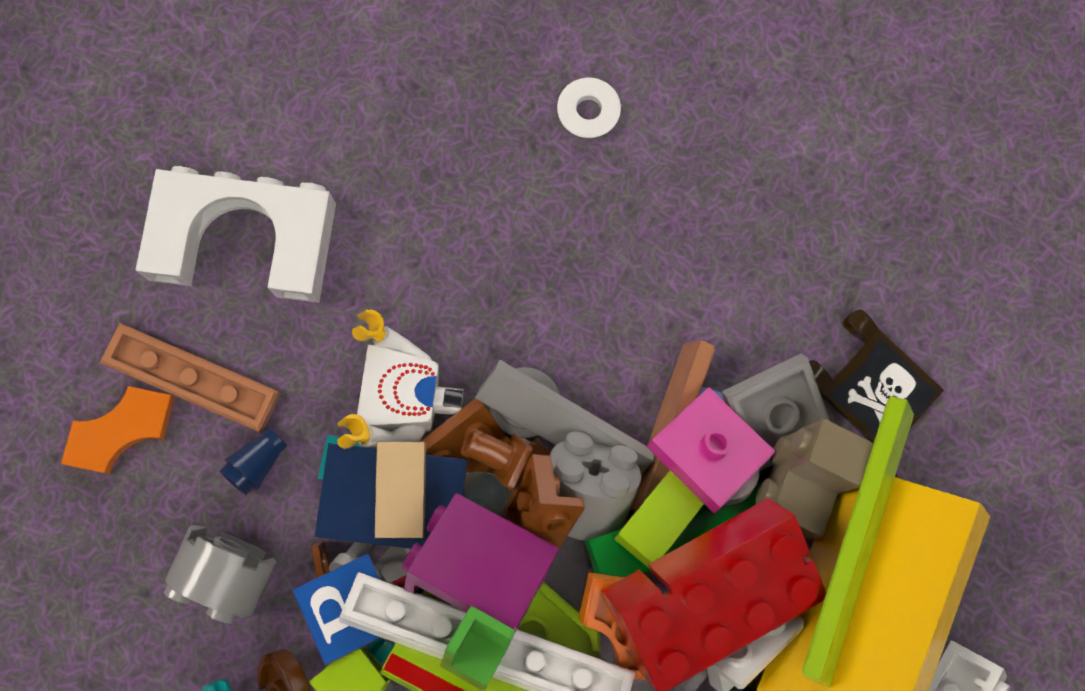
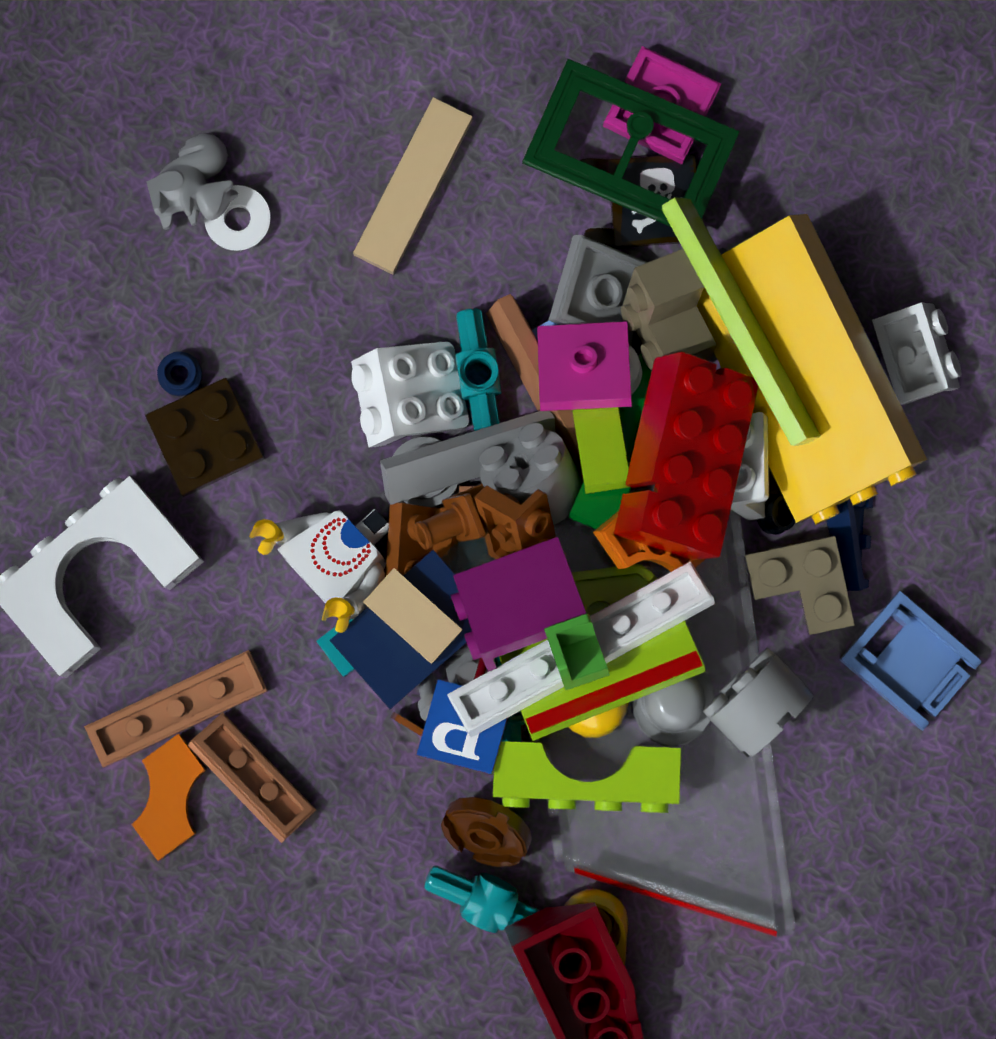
camera: 45 degrees left, 5 degrees up
(182, 475) = (251, 777): none -> nougat tile
(218, 574) = (351, 805): light grey brick -> none
(252, 462) = (286, 715): dark blue cone -> none
(409, 223) = (204, 437): none -> dark brown plate
(435, 154) = (176, 360): none -> dark blue plate
(574, 338) = (408, 392): none -> white bracket
(578, 50) = (184, 185): none -> light grey animal
(646, 359) = (476, 351): none -> teal axle
(727, 208) = (413, 186): none -> tan tile
(942, 324) = (646, 110): none -> dark green door
(957, 333) = (670, 82): none -> dark pink plate

